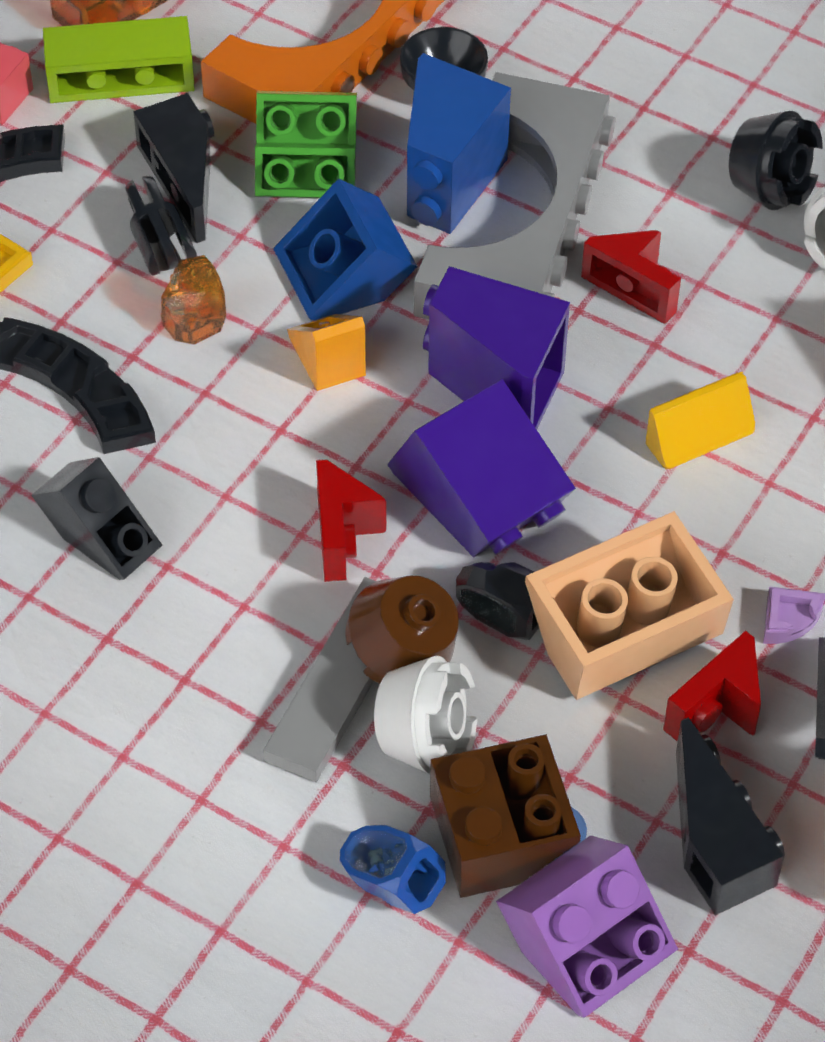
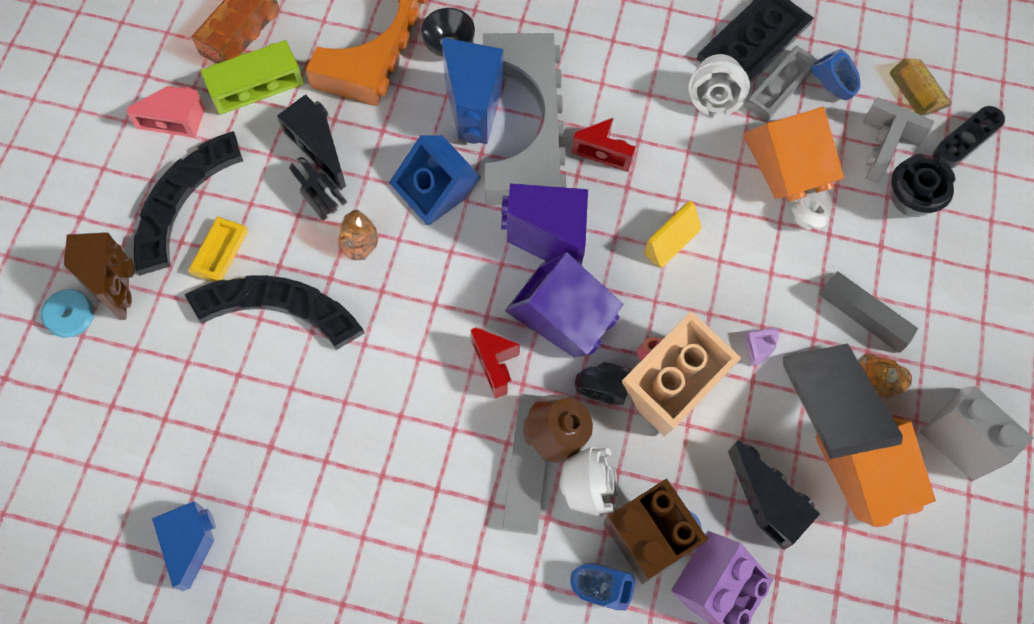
camera: 20 degrees left, 15 degrees up
(97, 517) = (350, 400): black slope -> none
(304, 142) = (386, 109): bright green slope -> none
(331, 349) = (446, 242): light orange slope -> none
(723, 685) = (748, 406): red slope -> none
(774, 159) = (659, 51): black cone -> none

